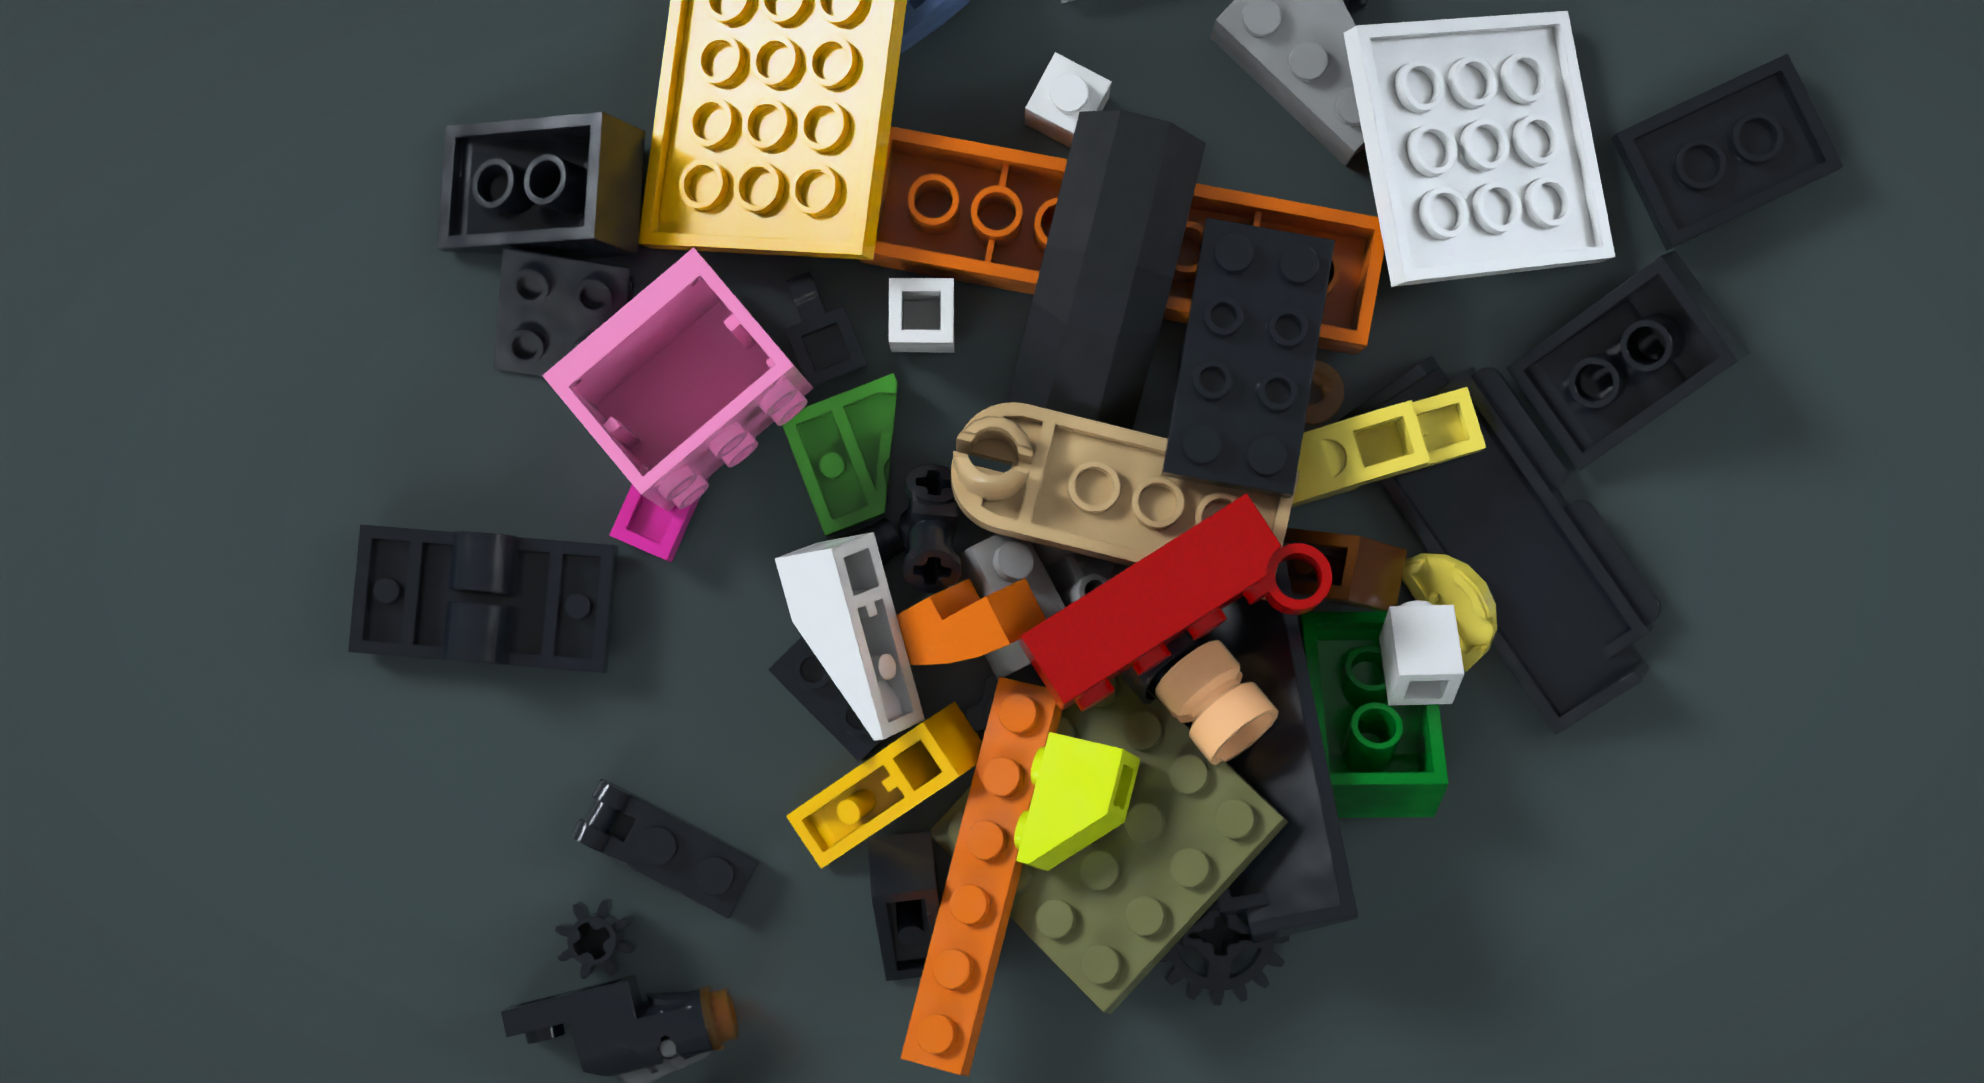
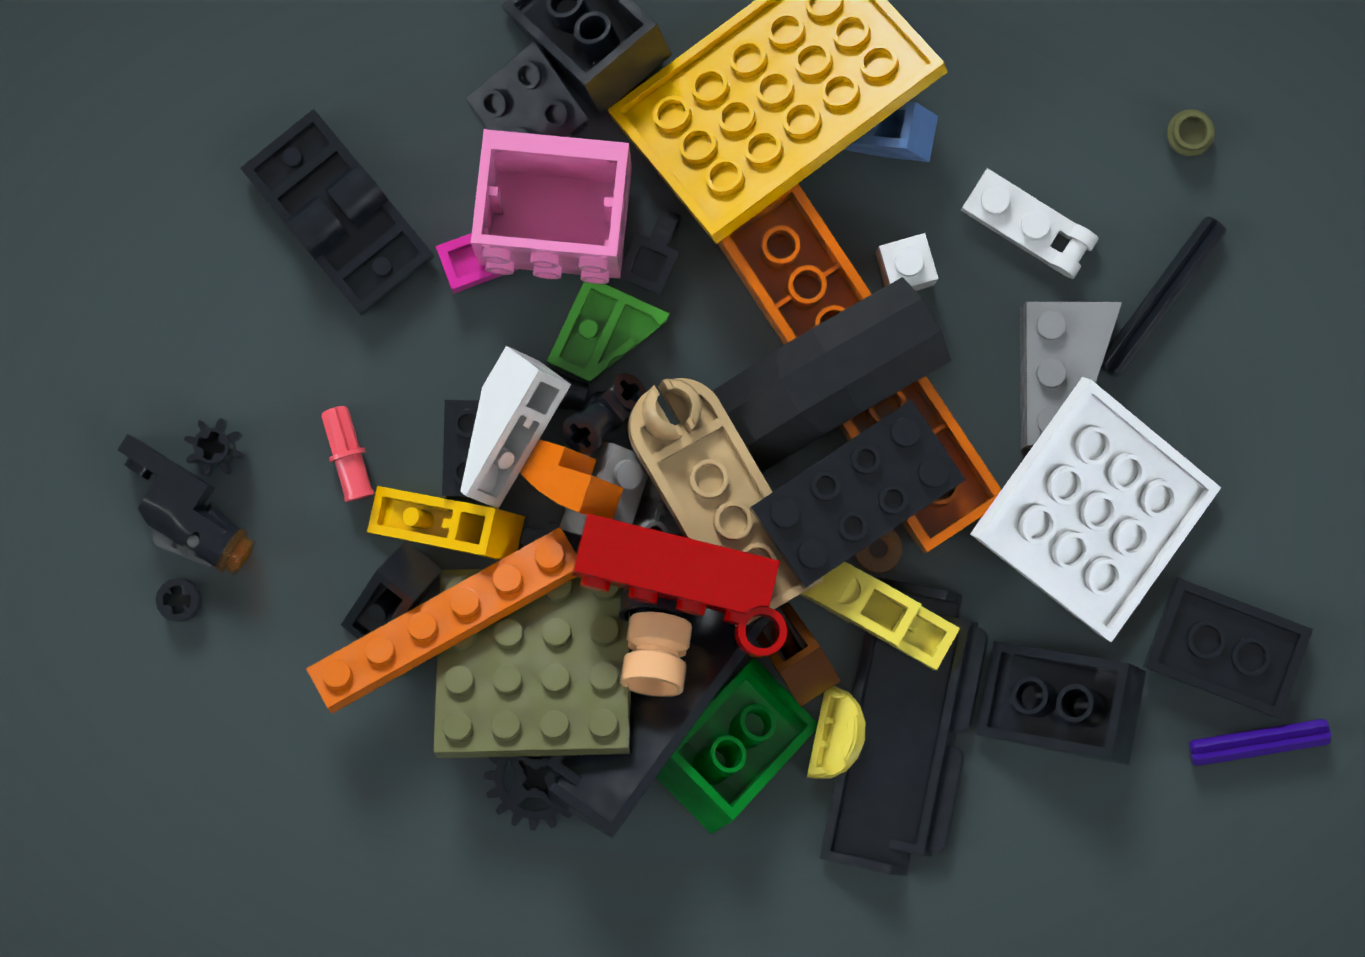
camera: 40 degrees right, 0 degrees up
(667, 849) = (298, 440): black plate -> none
(726, 815) = (347, 453): none -> coral axle
(922, 315) = (714, 298): white brick -> none
(1076, 799) = (532, 629): neon yellow slope -> none
(1421, 654) = (790, 741): white brick -> none
(1844, 209) = (1259, 742): none -> dark purple axle

